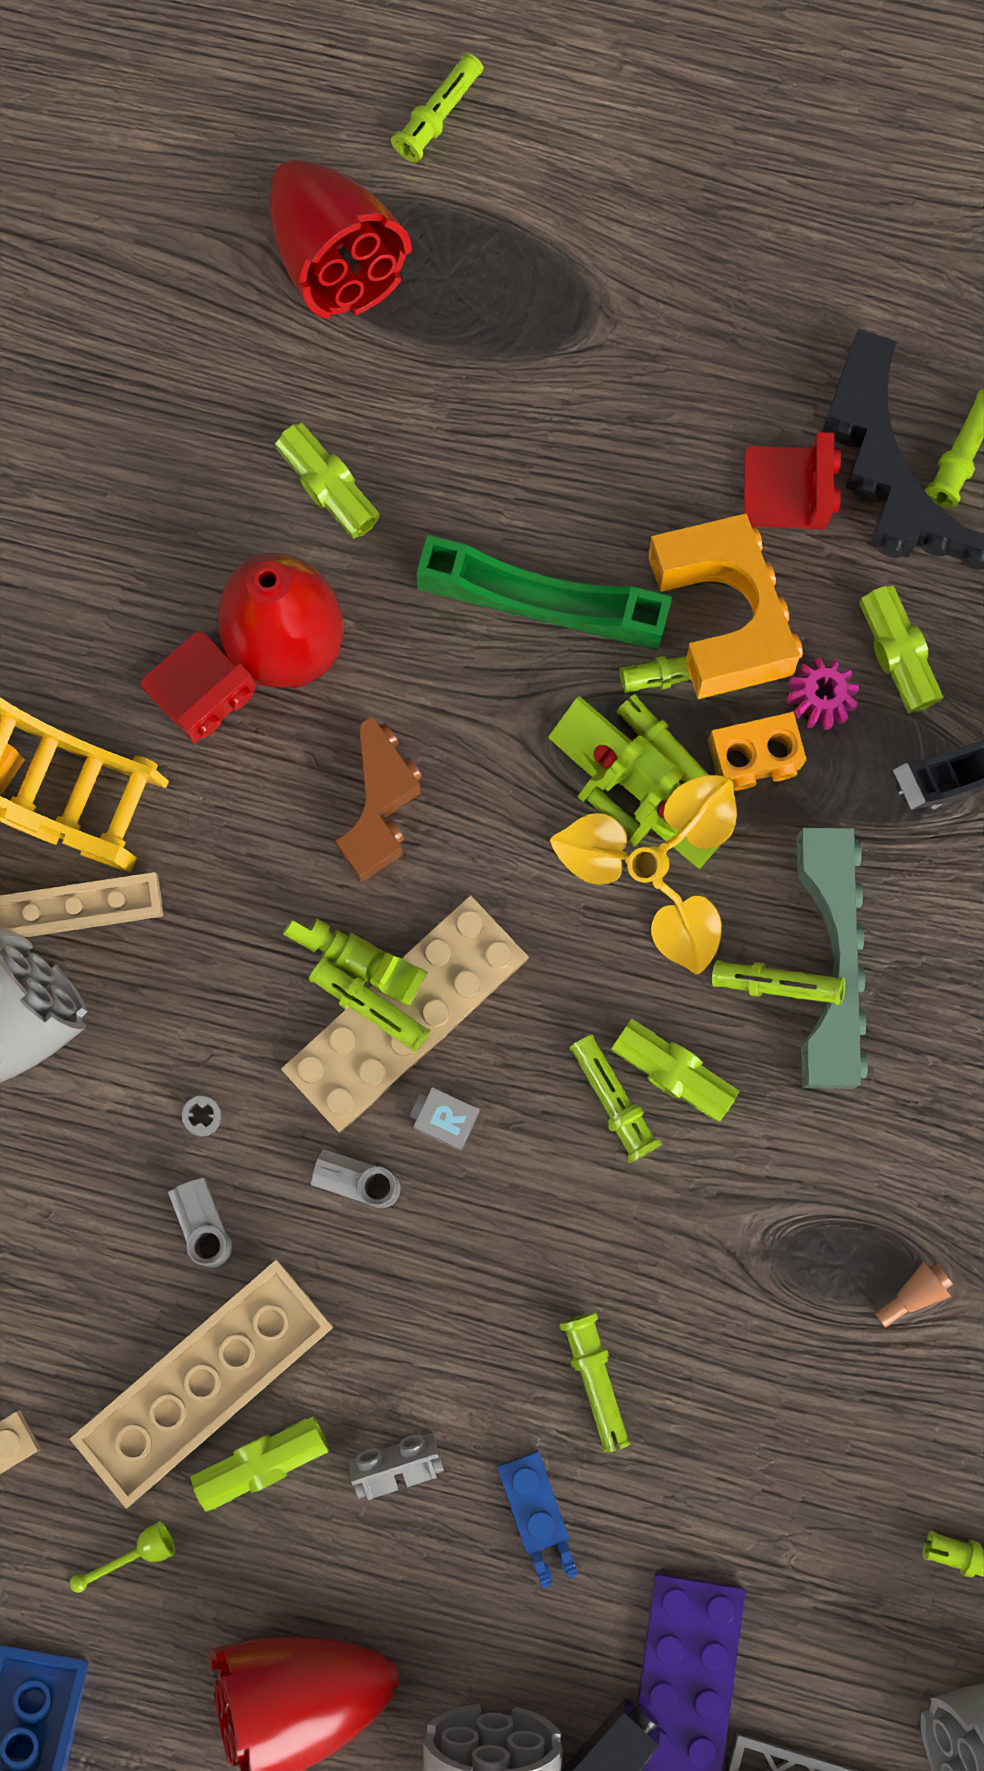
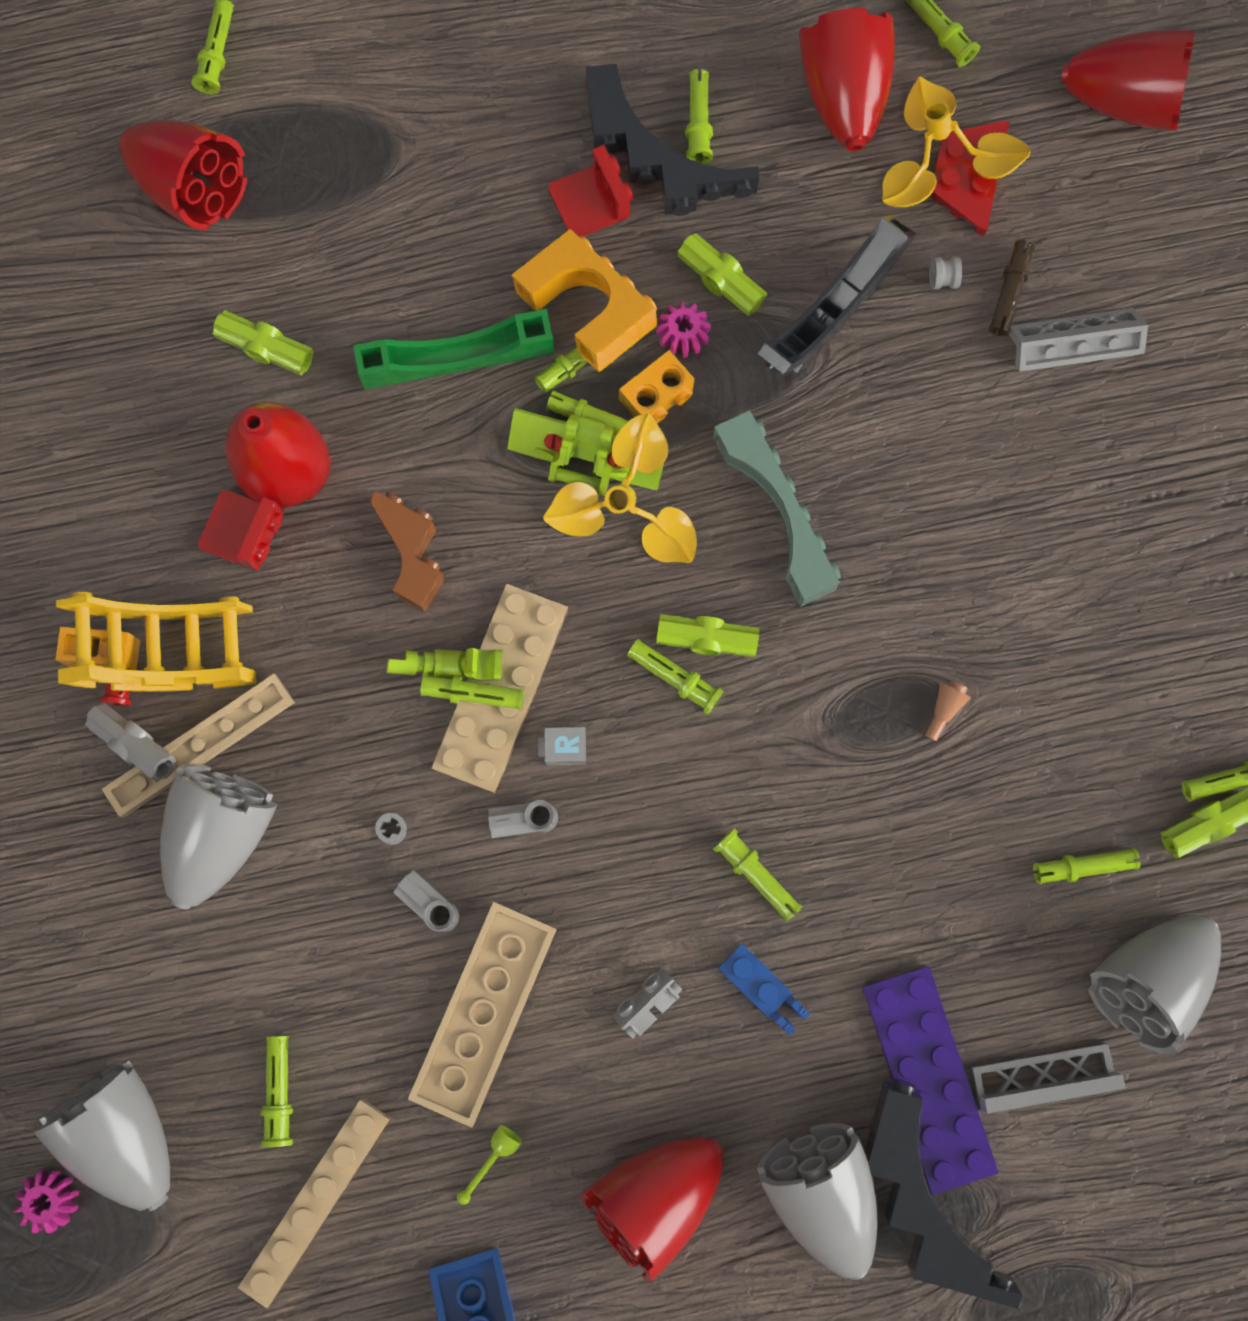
camera: 25 degrees left, 0 degrees up
(259, 1464) = (551, 1049): lime piece -> none
(729, 976) = (713, 552): lime pin -> none

